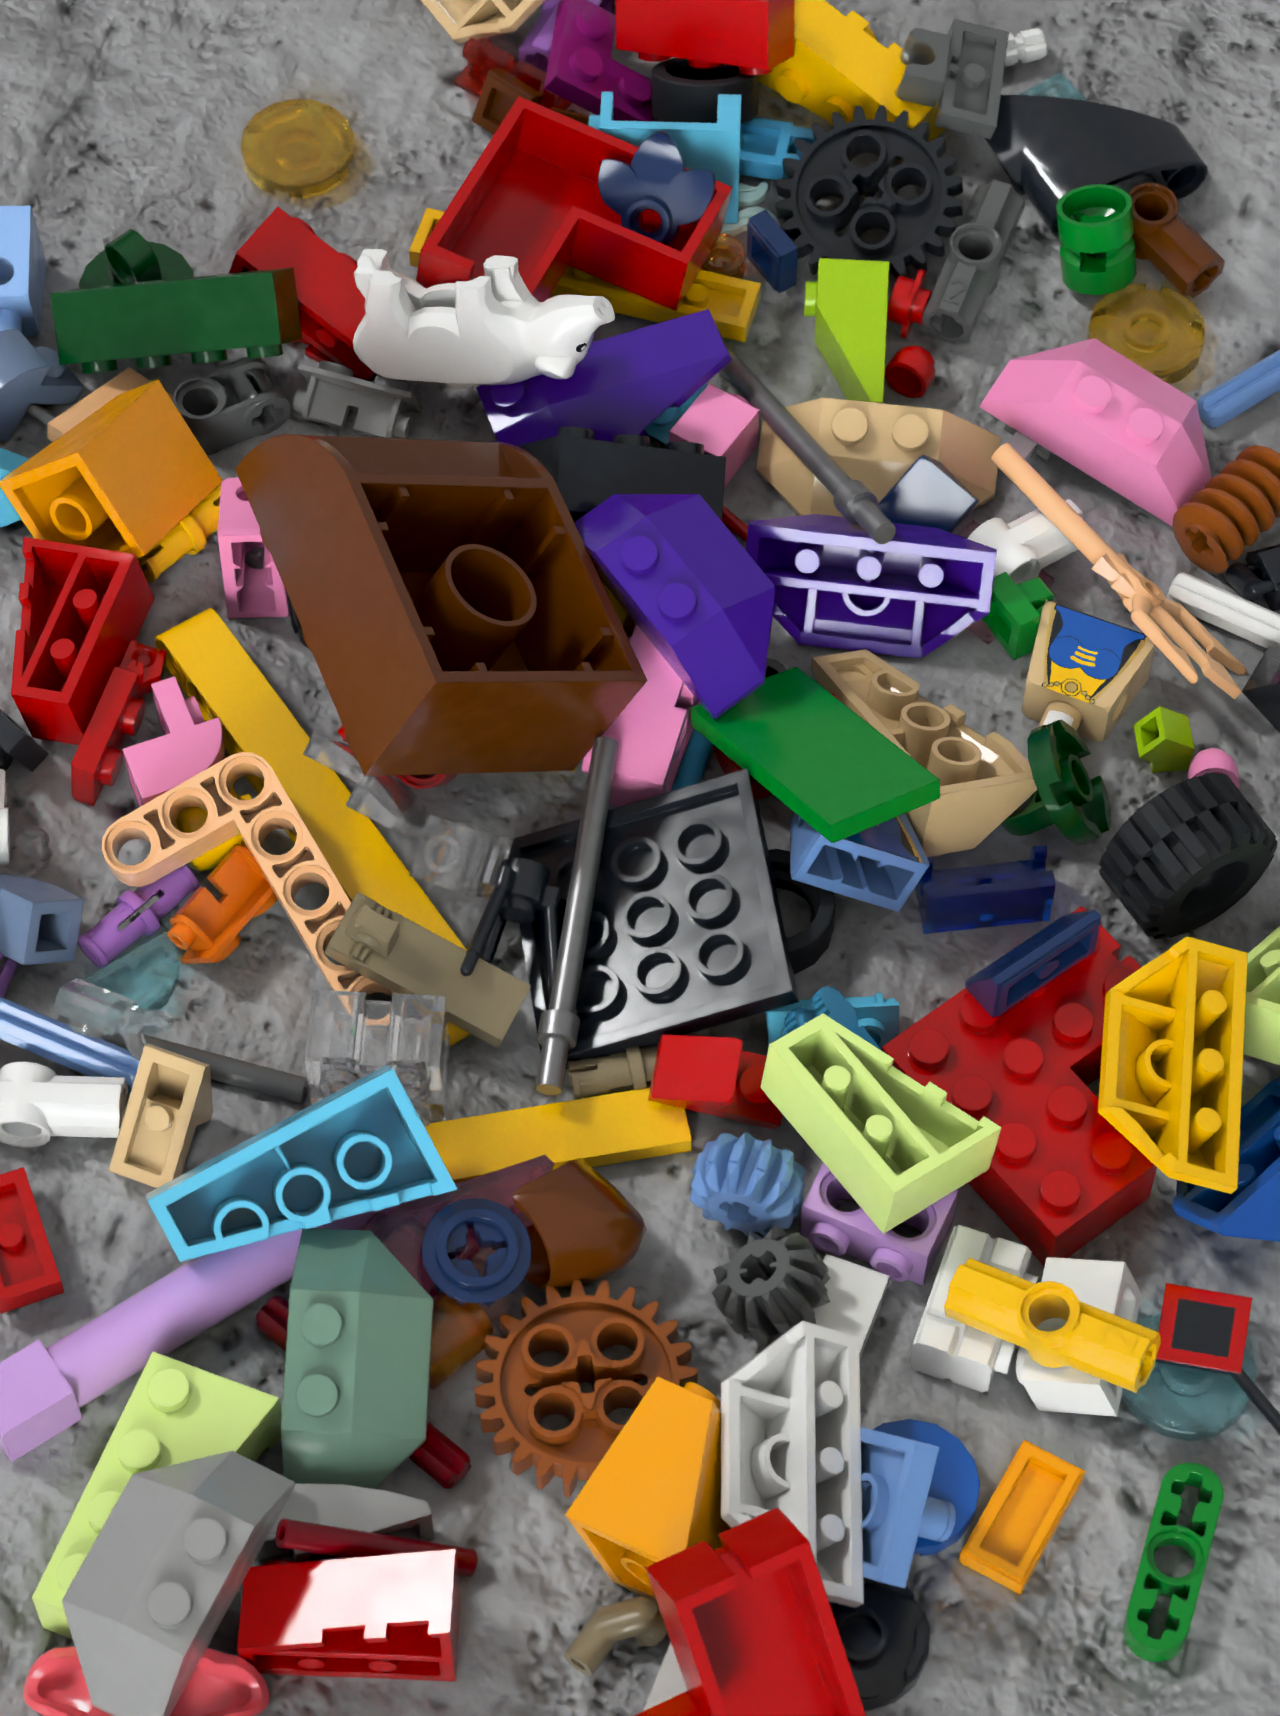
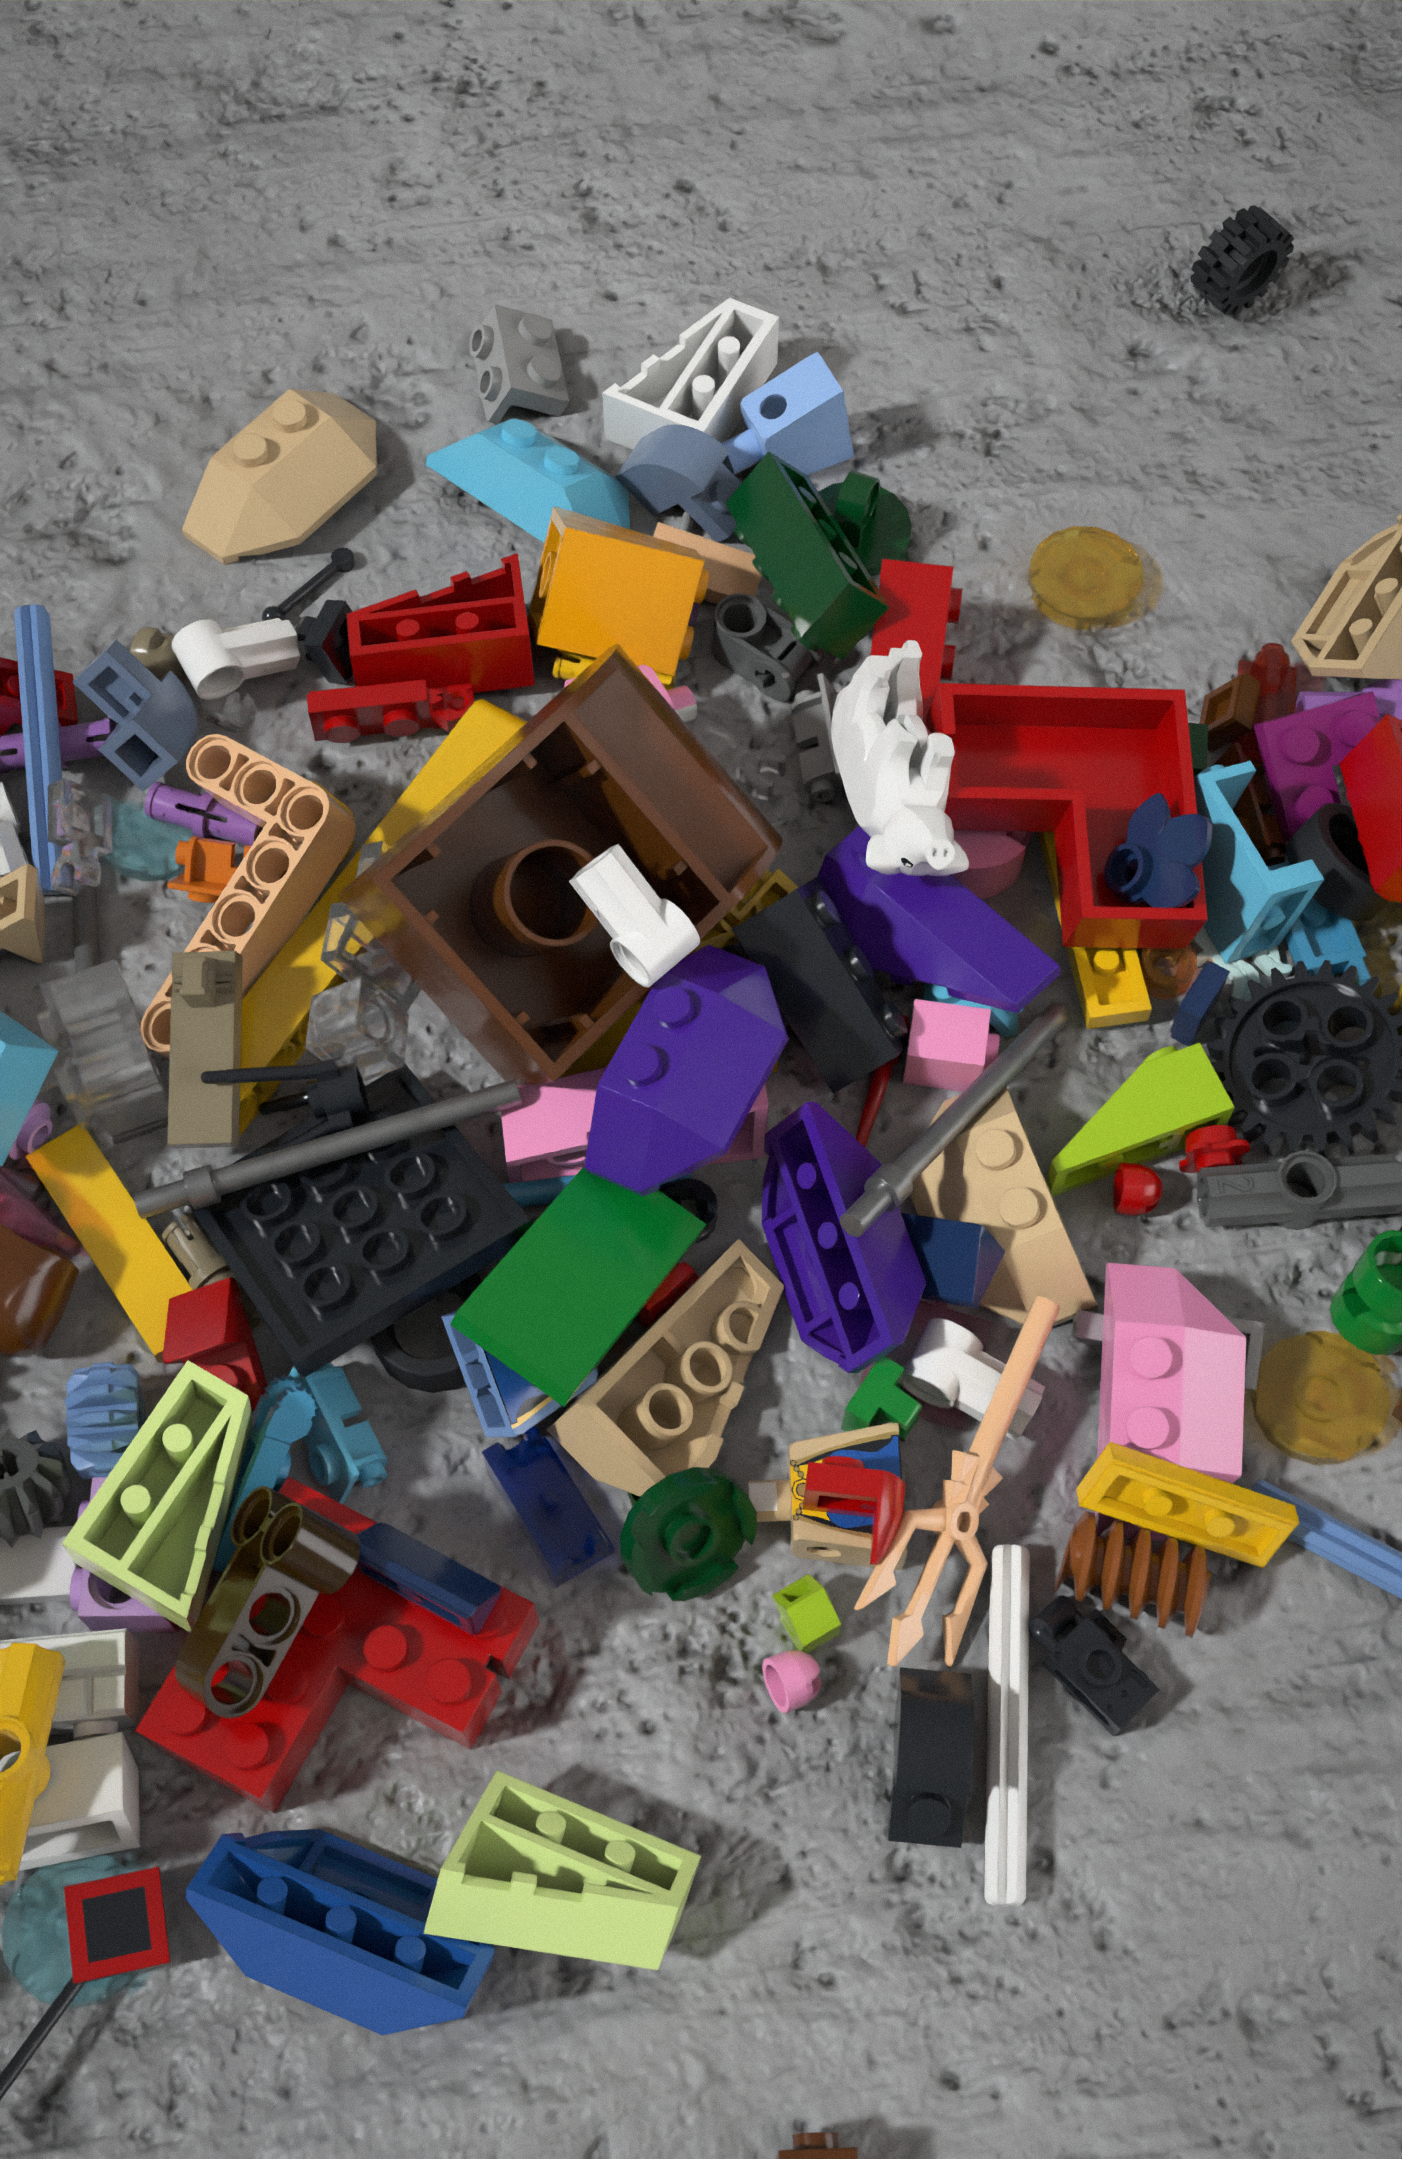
camera: 65 degrees right, 5 degrees up
(182, 751) = (366, 777): bright pink brick -> none
(560, 534) = (646, 930): none -> white piece
(1010, 1064) = (278, 1553): none -> dark brown piece
(1095, 643) = (848, 1488): none -> red plate
(1178, 1061) = (347, 1770): yellow wedge -> none
(1187, 855) = (641, 1686): black tyre -> none
(1206, 442) = (1186, 1505): none -> yellow tile

